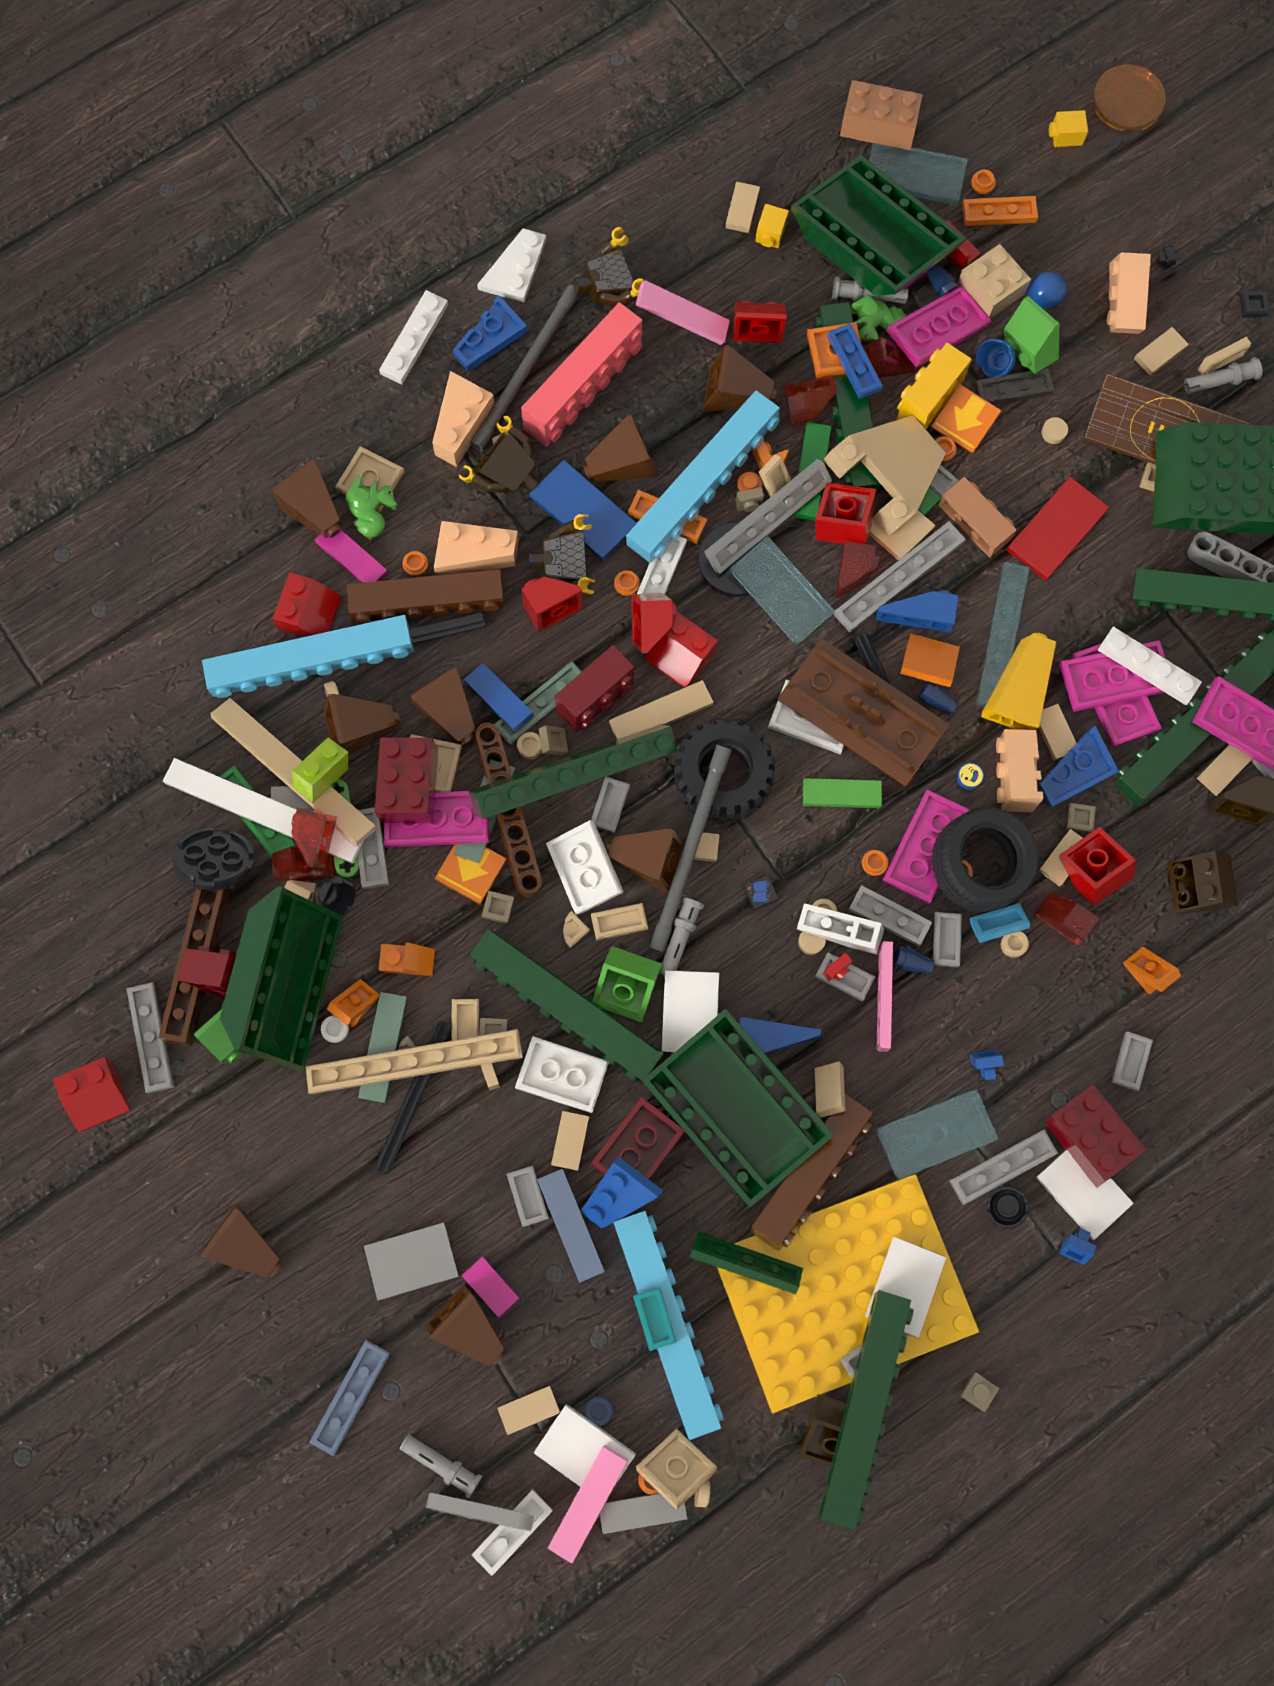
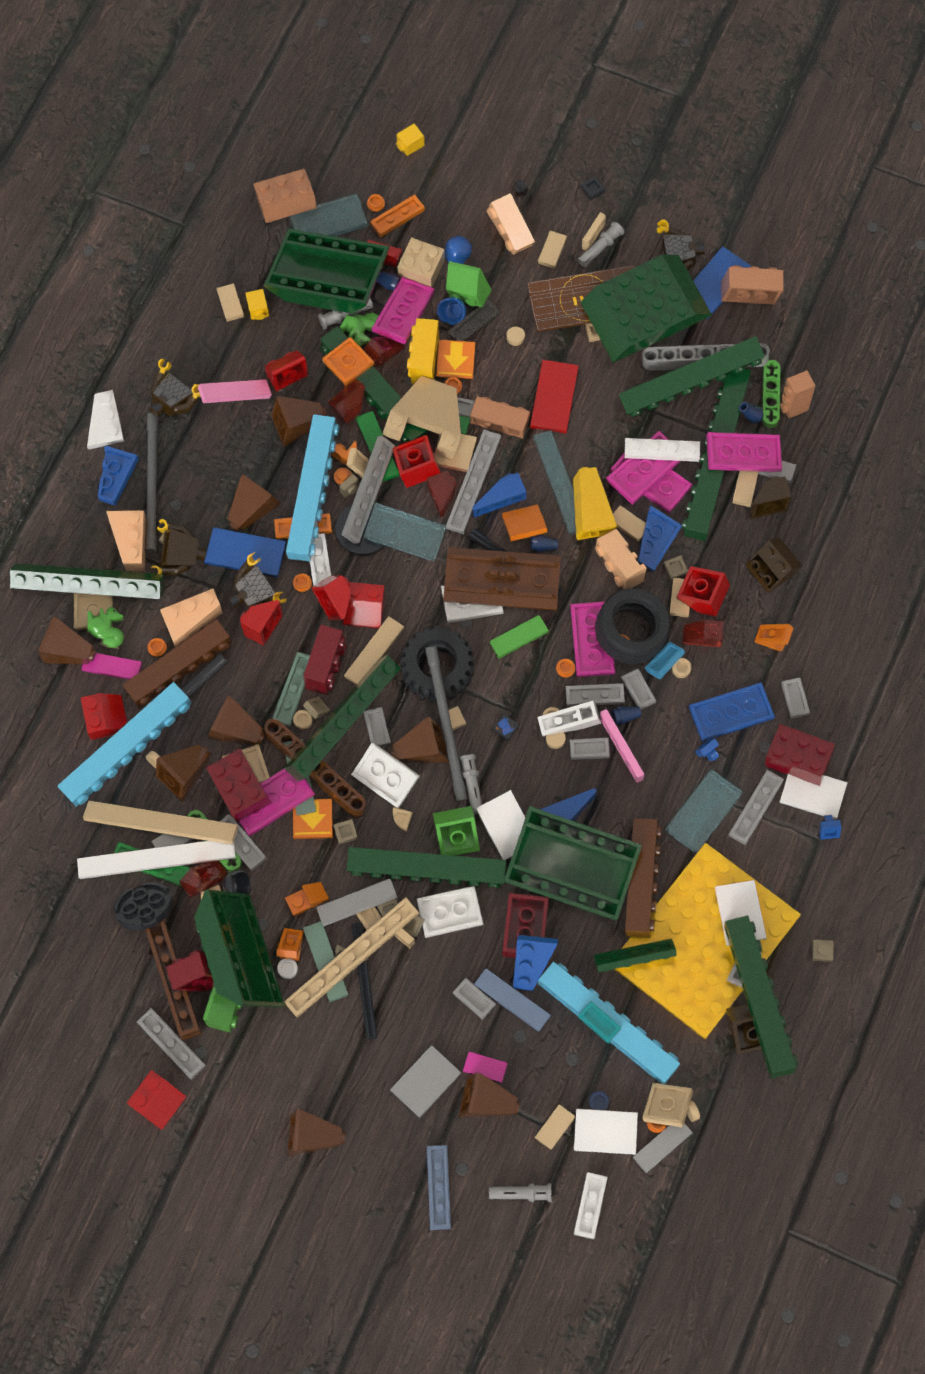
camera: 25 degrees left, 5 degrees down
(313, 835) = (200, 852): clear red slope -> none
(320, 769) = (180, 809): lime brick -> none
(381, 441) = (87, 581): none -> brick
(413, 337) = (65, 503): white plate -> none
(459, 999) = (356, 902): none -> light grey tile
(480, 1512) = (563, 1203): light grey beam -> none
(499, 697) = (265, 700): blue tile -> none
(509, 1068) = (414, 926): none -> dark tan plate
(570, 1141) = (480, 949): tan tile -> none
(582, 375) = (194, 466): coral brick -> none
(588, 1504) = (626, 1159): bright pink tile -> none
(619, 921) = (427, 796): tan tile -> none
(829, 1089) = (622, 821): tan tile -> none
(838, 968) = (582, 745): red plate -> none
(854, 361) = (364, 361): blue tile -> none
(970, 776) = (592, 580): tile -> none
(1007, 1207) = (773, 829): black hair -> none
(1043, 1032) = (731, 711): none -> blue tile
(1129, 97) = (436, 99): clear orange tile -> none

